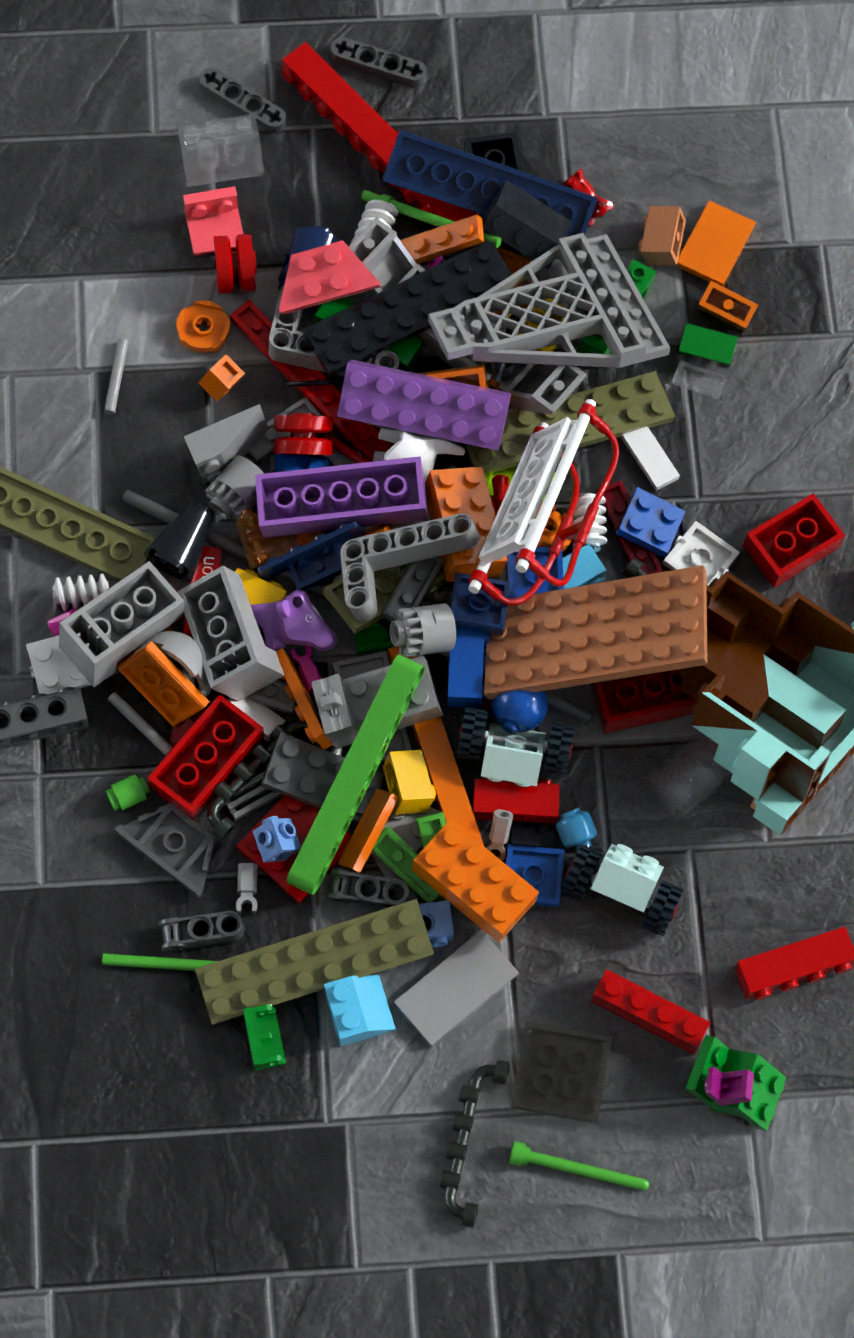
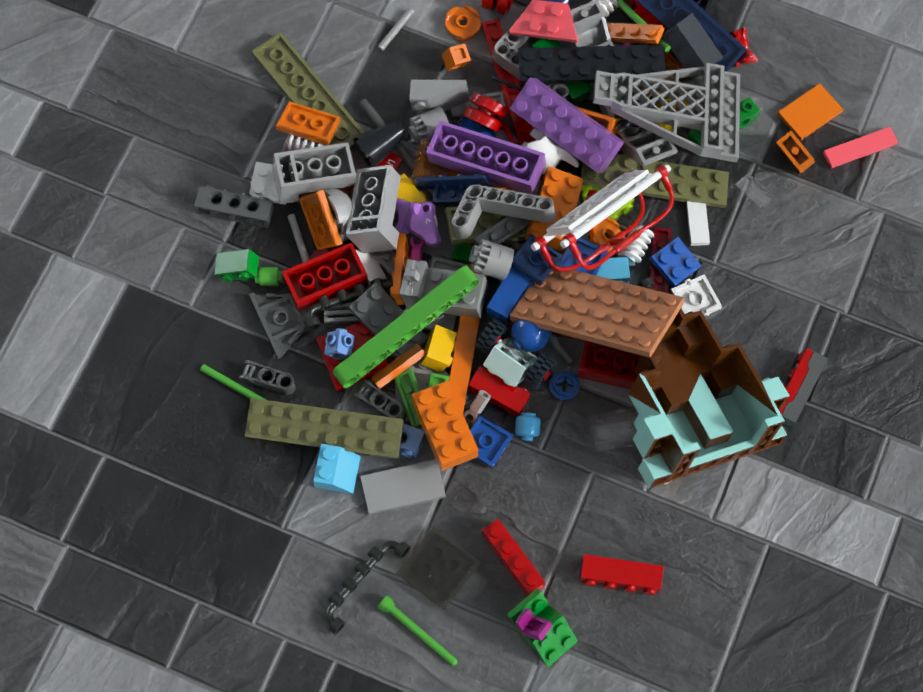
camera: 30 degrees right, 0 degrees up
(72, 559) = (308, 123): none -> orange tile
(78, 798) = (236, 265): none -> brick
(247, 886) = (309, 365): light grey bar -> none
(264, 1037) = (271, 459): green hinge -> none
(598, 741) = (558, 379): none -> blue gear
(627, 880) = (540, 471): brick -> none
(662, 235) = (777, 91): nougat brick -> none
(708, 344) = (770, 170): green hinge -> none
(793, 540) = (760, 314): red brick -> none
(802, 262) = (860, 147): none -> coral tile

